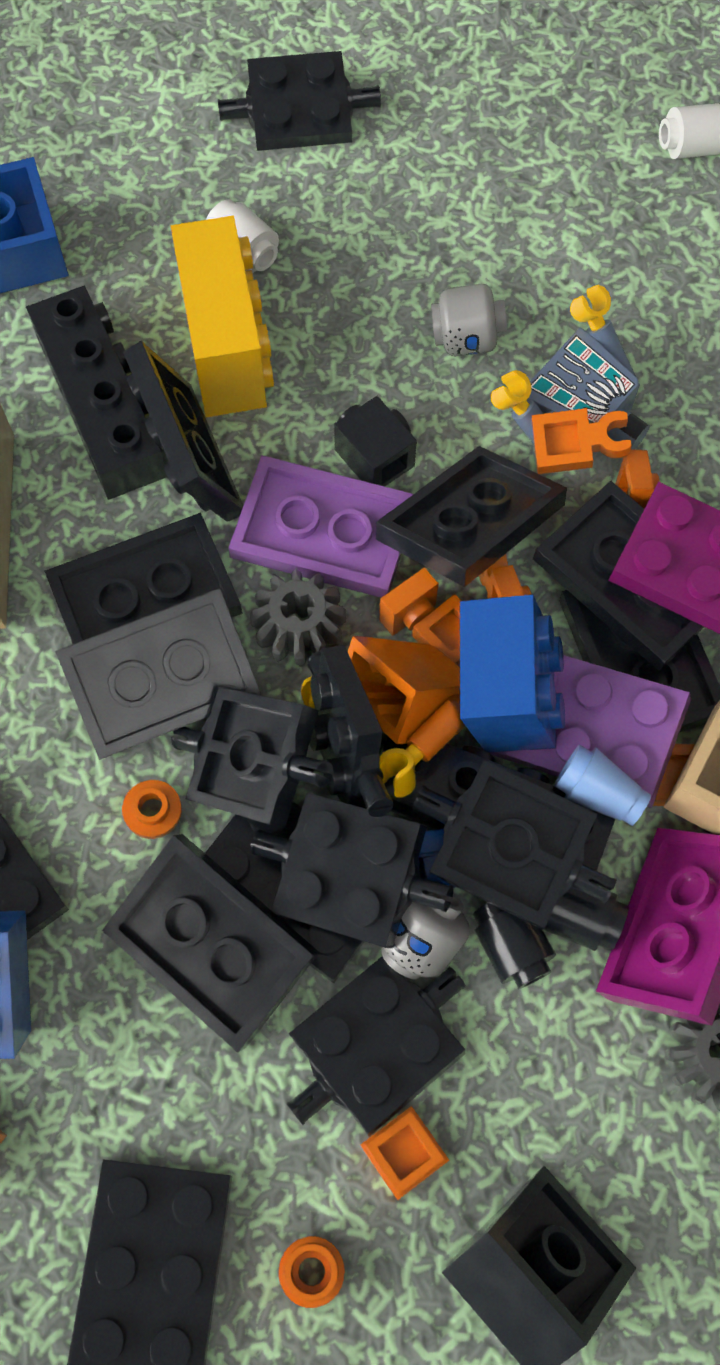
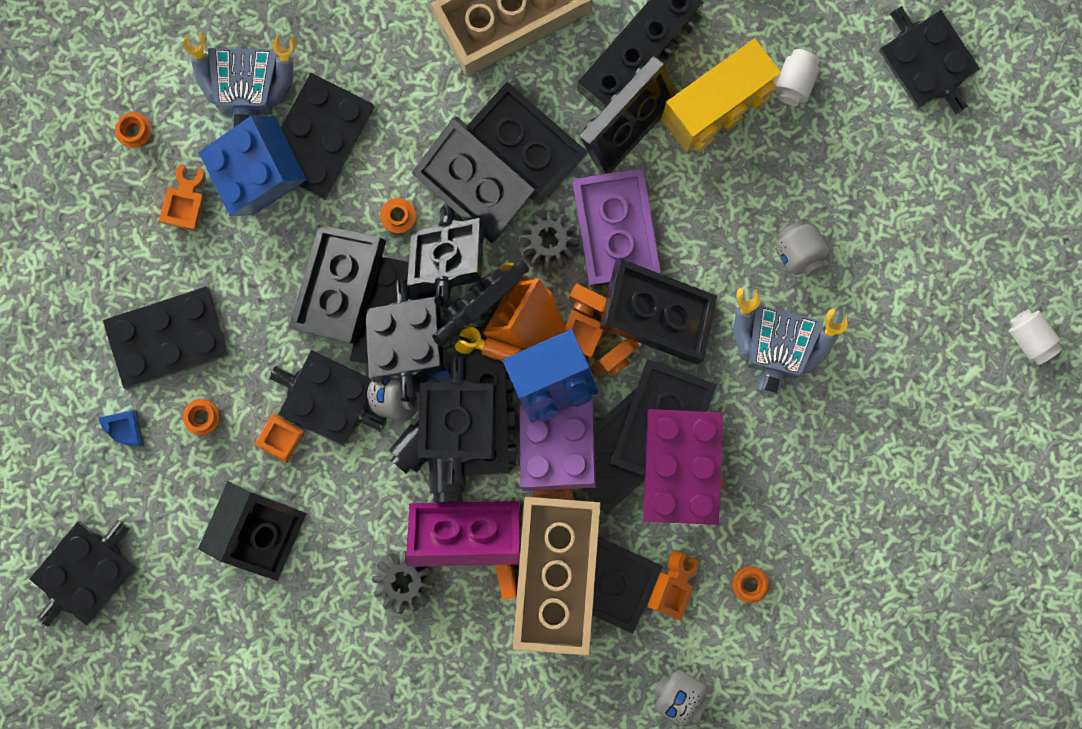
camera: 65 degrees right, 15 degrees up
(375, 442) = (686, 231): black brick -> none
(567, 439) = (733, 348): orange plate -> none
(602, 786) = (514, 455): light blue cone -> none
(636, 477) = (731, 402): orange plate -> none

